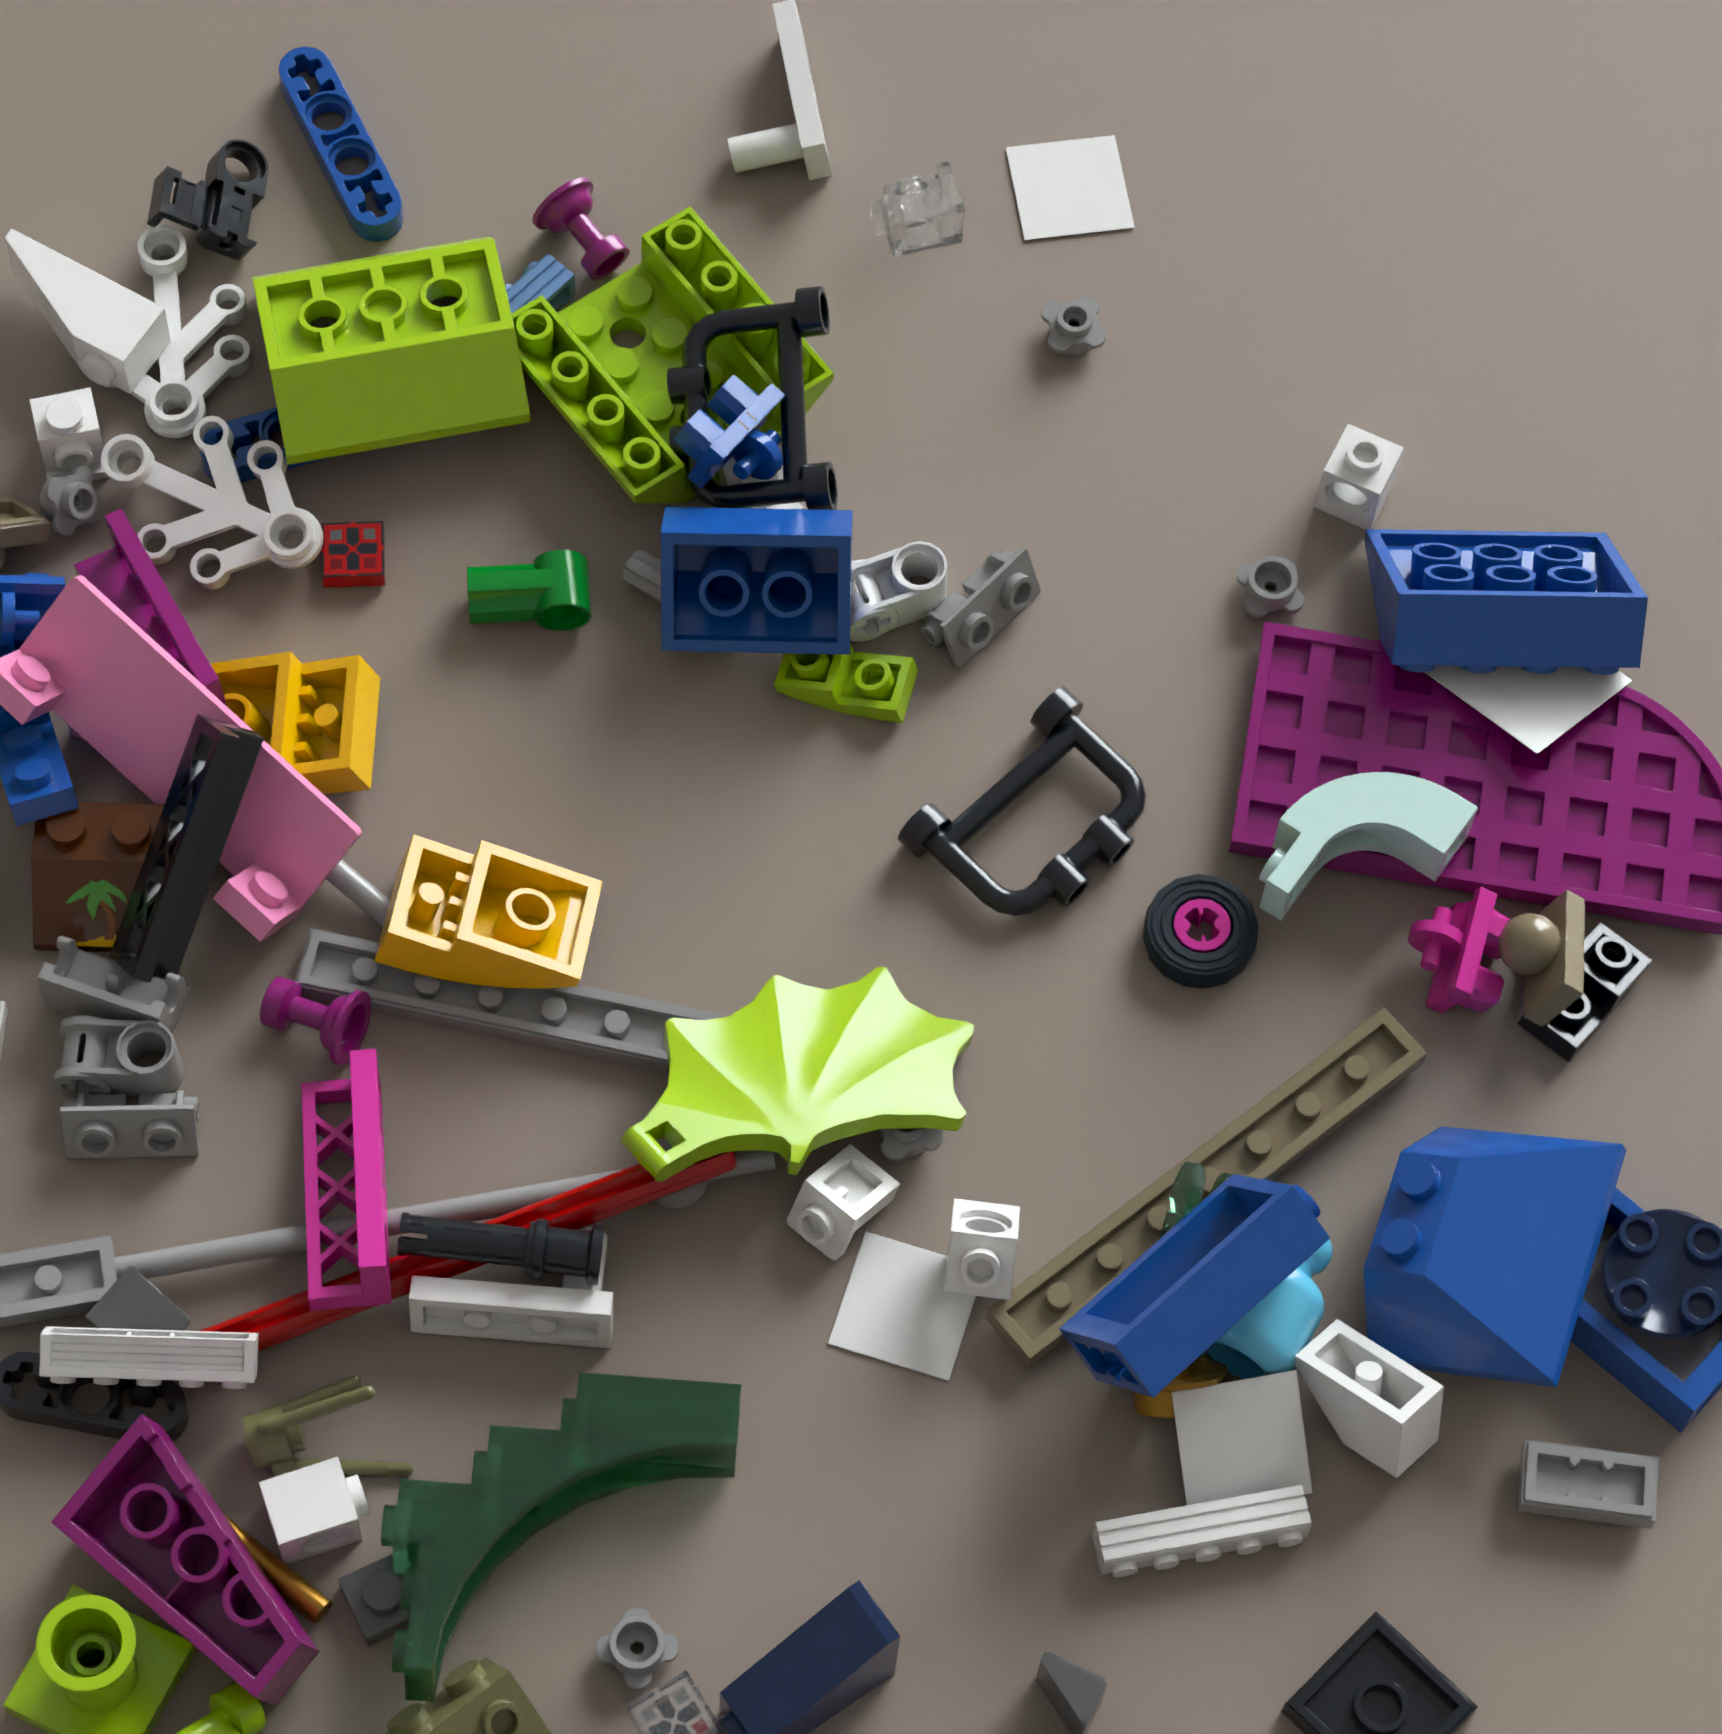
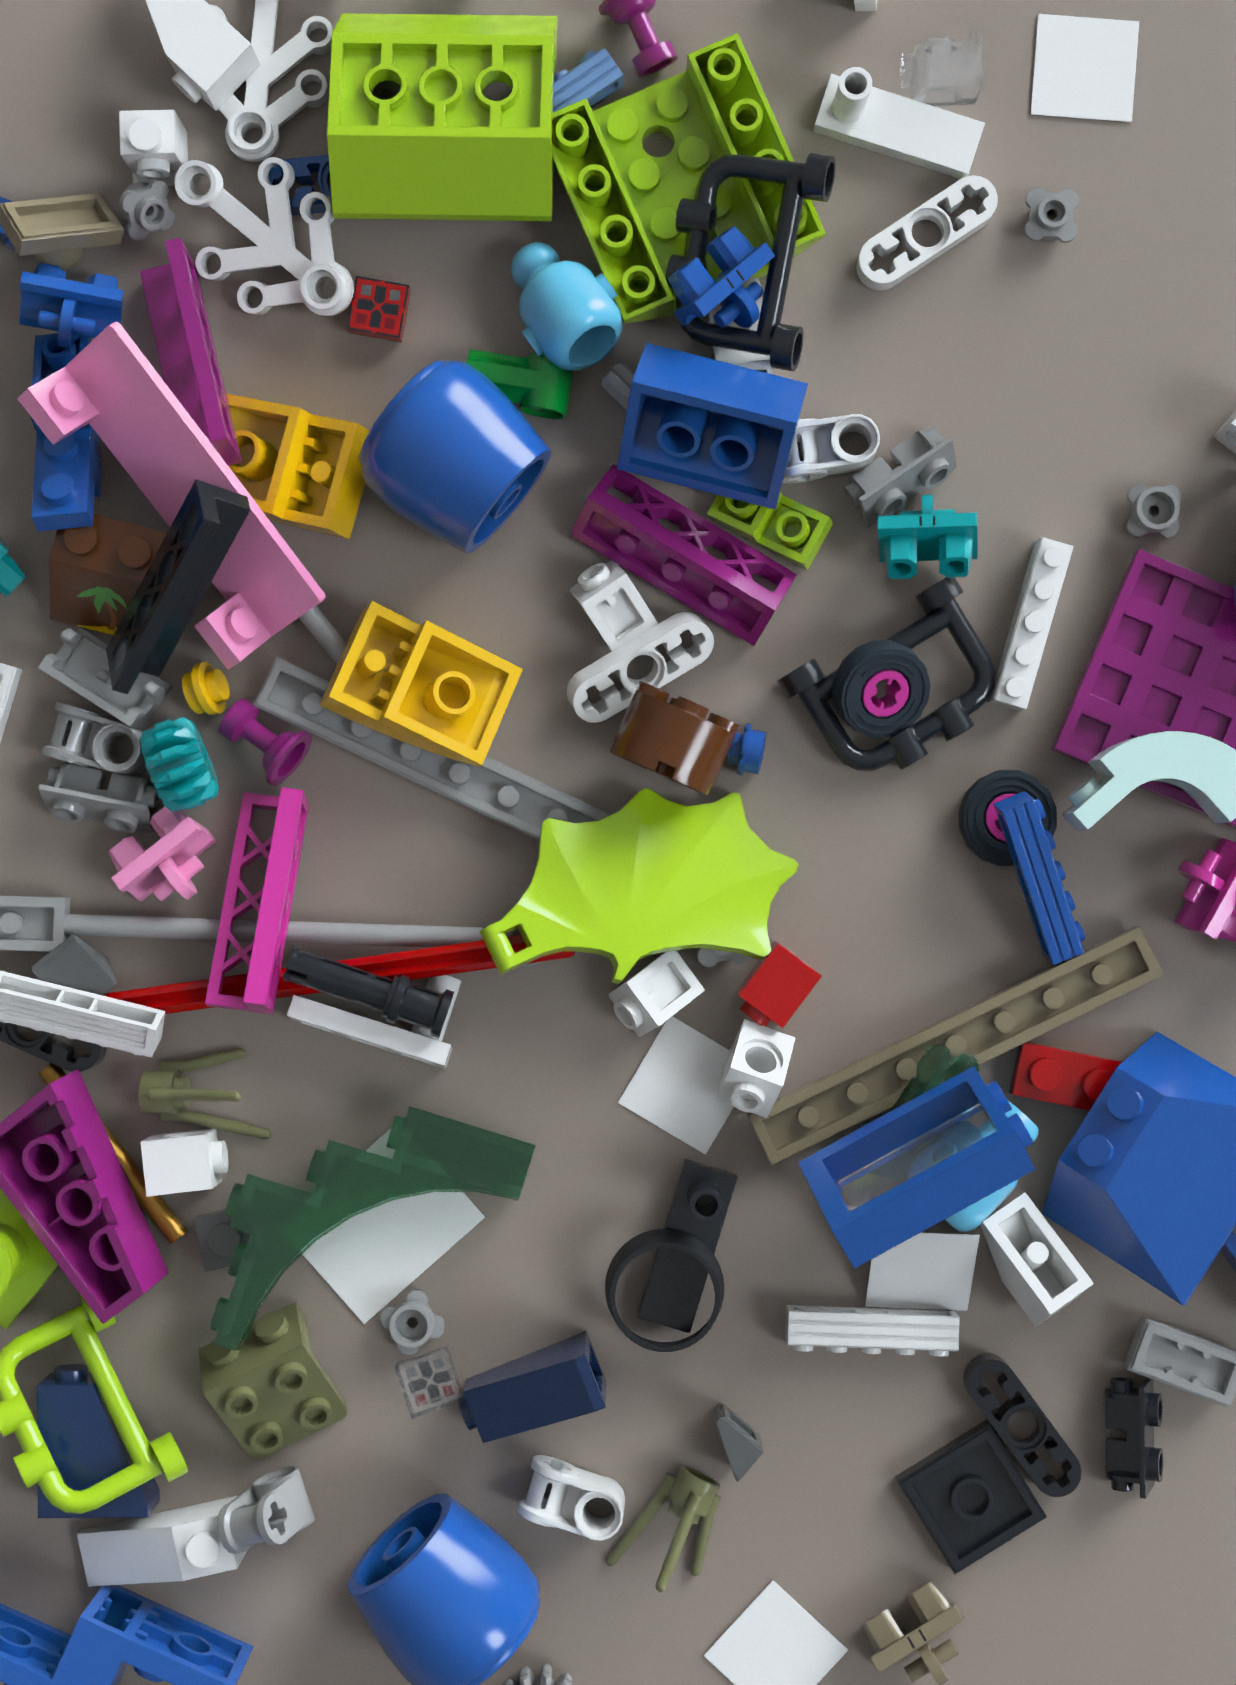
camera: 15 degrees right, 25 degrees up
(223, 1054) = (179, 764): none -> teal gear
(224, 1172) = (166, 863): none -> bright pink hips
(235, 976) = (205, 689): none -> yellow plate
(475, 664) = (453, 455): none -> blue piece
(567, 502) = (565, 308): none -> medium azure piece
(585, 1569) = (390, 1245): none -> white sticker
(691, 796) = (612, 604): none -> white bracket
(713, 894) = (663, 672): none -> white beam
(755, 732) = (678, 559): none -> magenta fence
(795, 909) = (674, 738): none -> reddish brown brick
(882, 918) = (747, 750): none -> blue plate
(883, 272) = (897, 125): none -> white piece
(928, 1592) = (664, 1239): none -> black tyre
(935, 392) = (966, 223): none -> white beam
(953, 1483) = (676, 1276): none -> black piece
(984, 1155) = (777, 987): none -> red brick
(1028, 656) = (928, 537): none -> teal hips
(1047, 820) = (856, 690): none -> black bush
(1168, 727) = (1031, 624): none -> white piece
(1254, 975) = (1040, 877): none -> blue piece
(1346, 1193) = (1060, 1075): none -> red plate
(1414, 1576) = (1032, 1464): none -> black beam
(1547, 1557) = (1133, 1457): none -> black hinge

